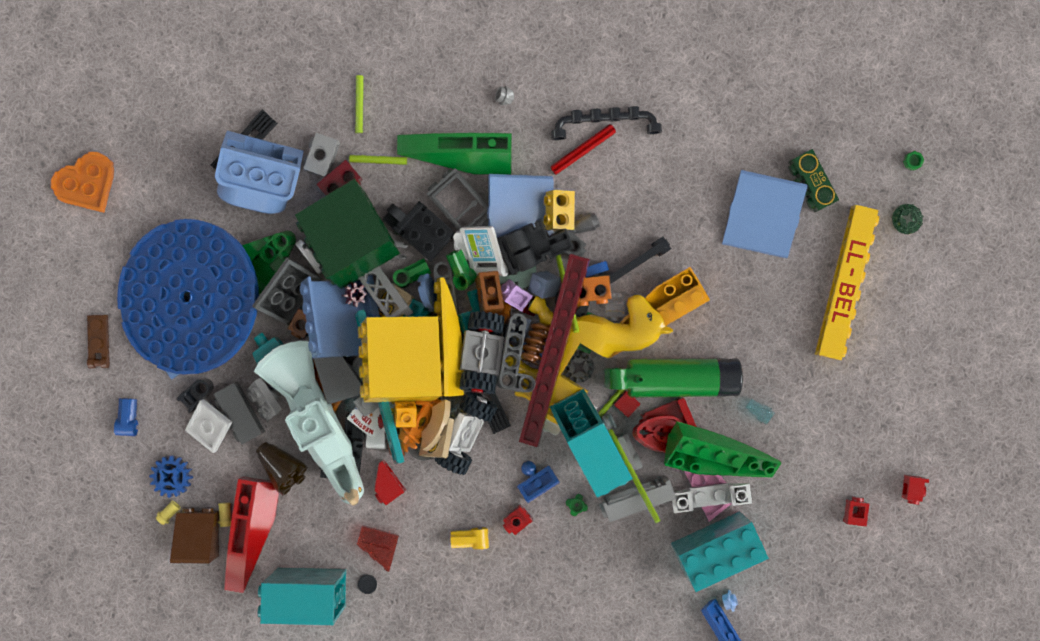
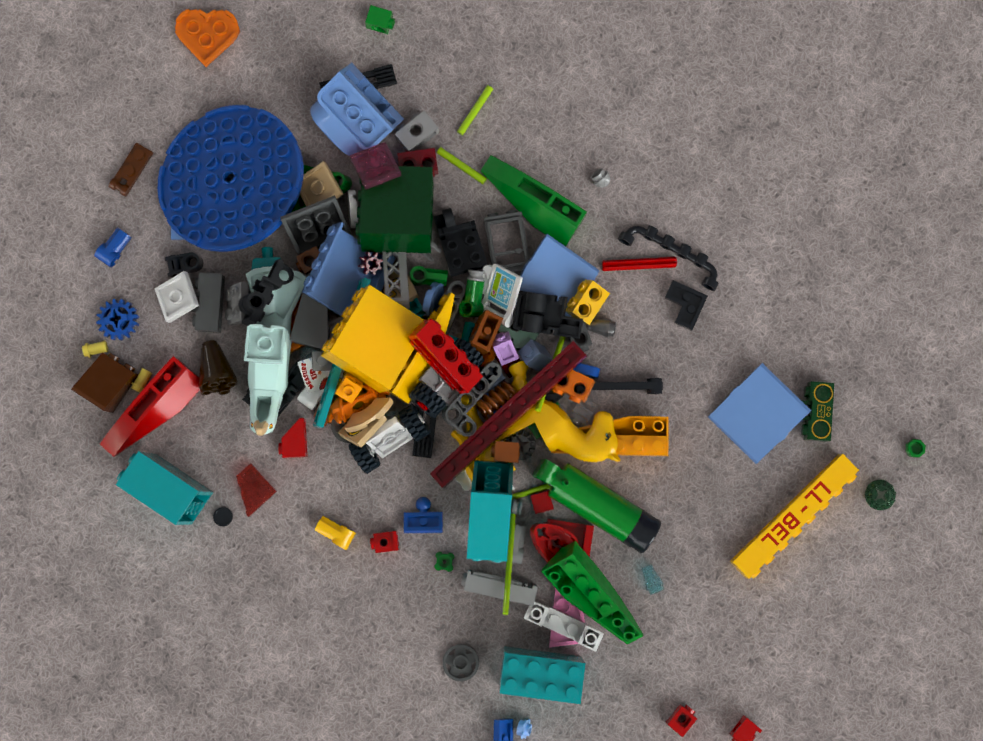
camera: 30 degrees right, 5 degrees down
(227, 76) = (379, 19): none -> green brick
(268, 255) = (319, 185): none -> tan tile
(281, 381) = (262, 293): none -> black plate
(299, 206) = (372, 161): none -> clear pink plate
(451, 248) = (475, 275): none -> light grey bush
(480, 333) = (455, 367): none -> red brick
(572, 384) = (506, 452): none -> dark orange brick
(642, 579) = (460, 662): none -> dark grey wheel
(647, 154) = (691, 302): none -> black plate

